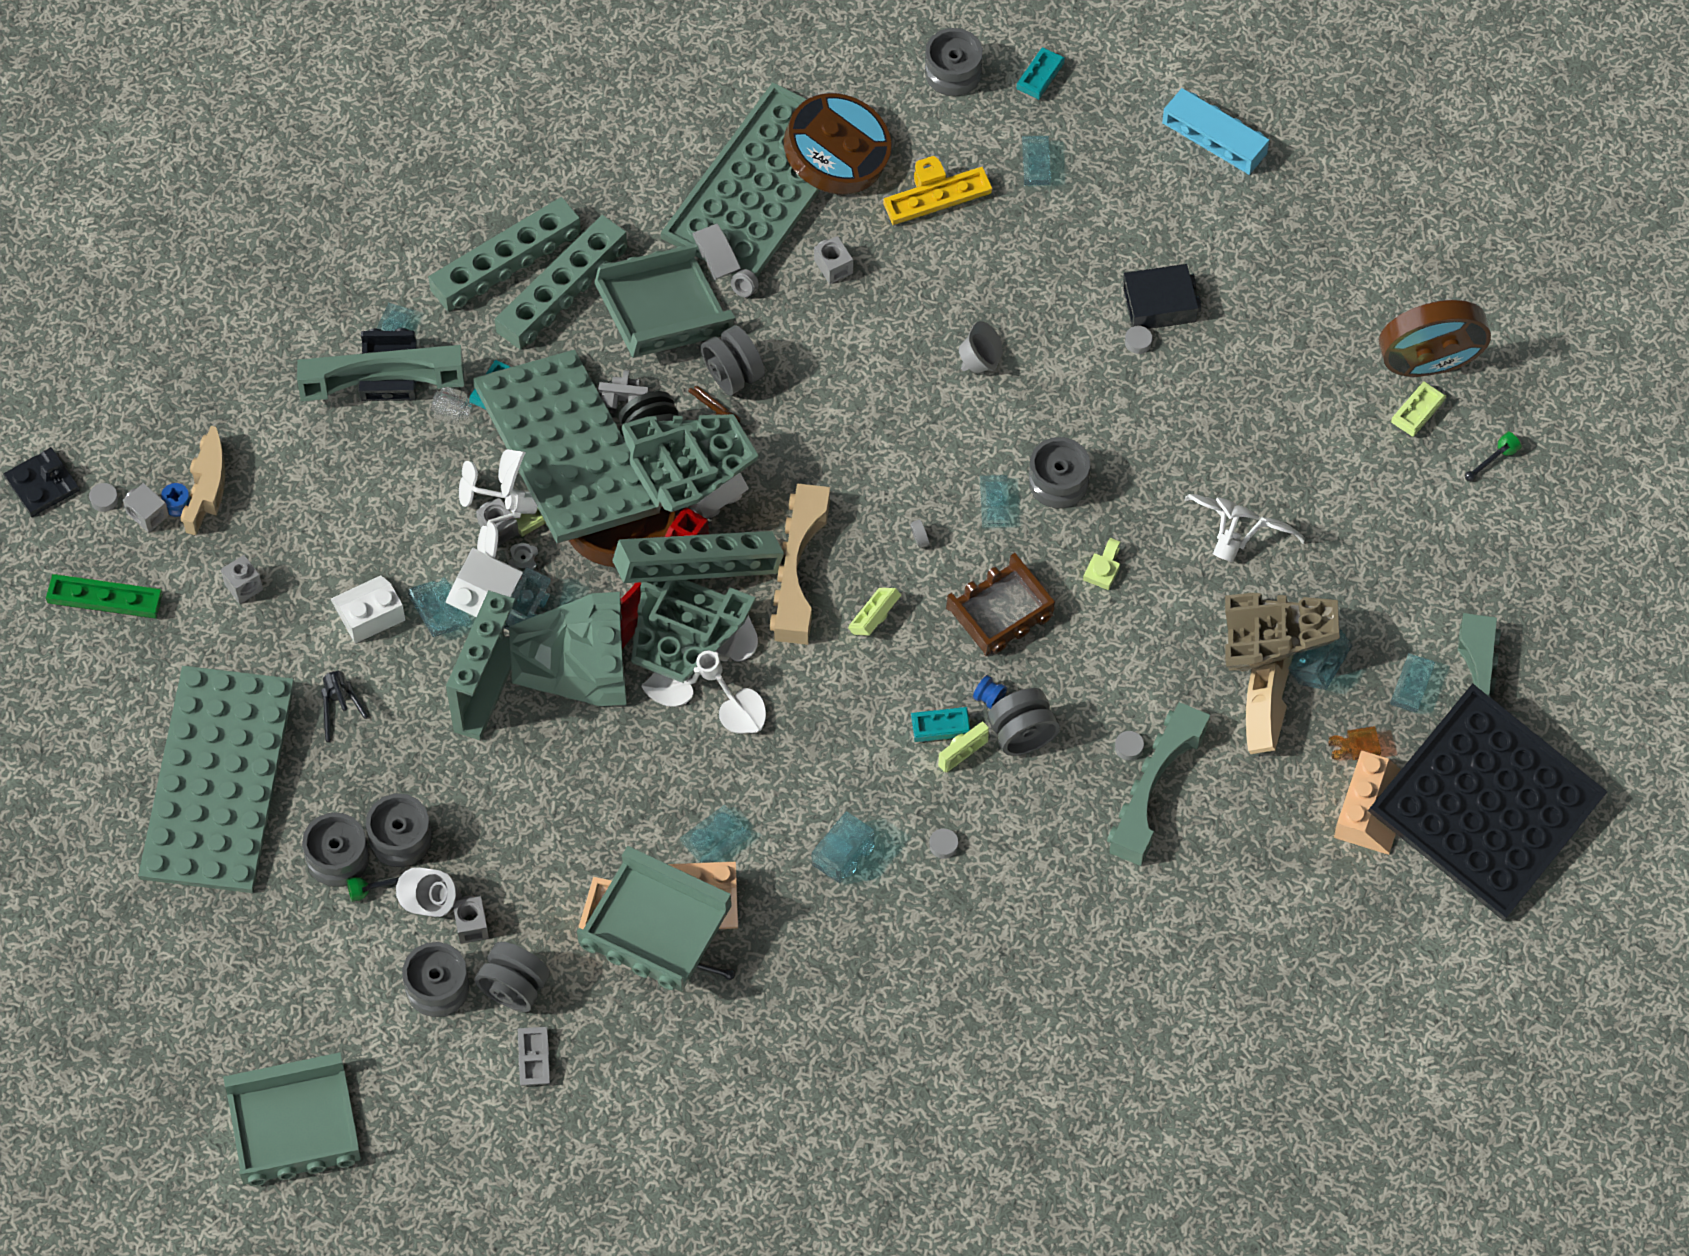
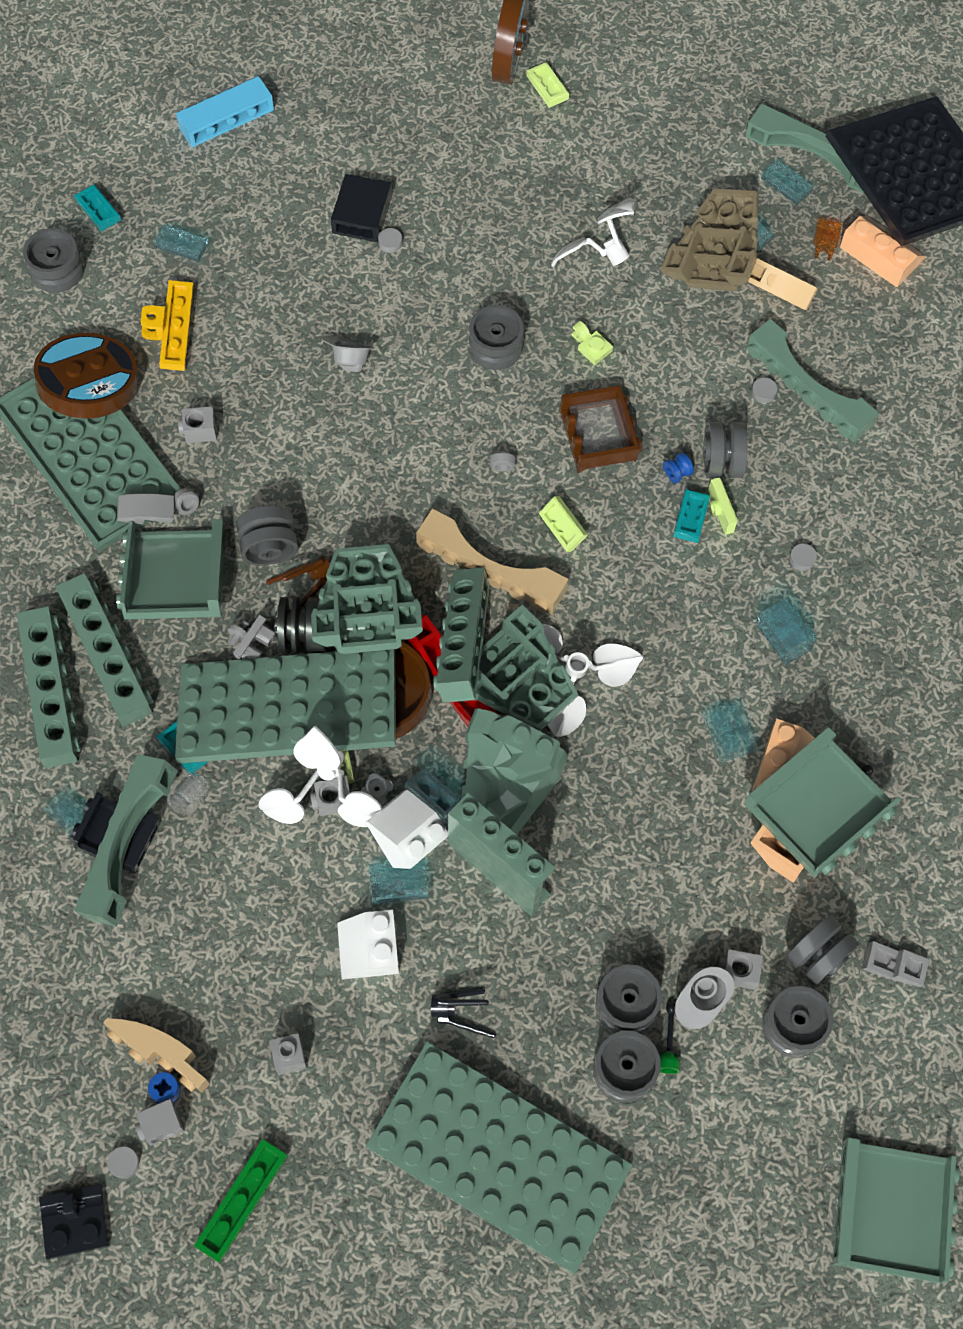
camera: 70 degrees left, 5 degrees up
(994, 501) = (494, 398): clear light blue plate -> none
(1507, 445) = (606, 43): hinge -> none

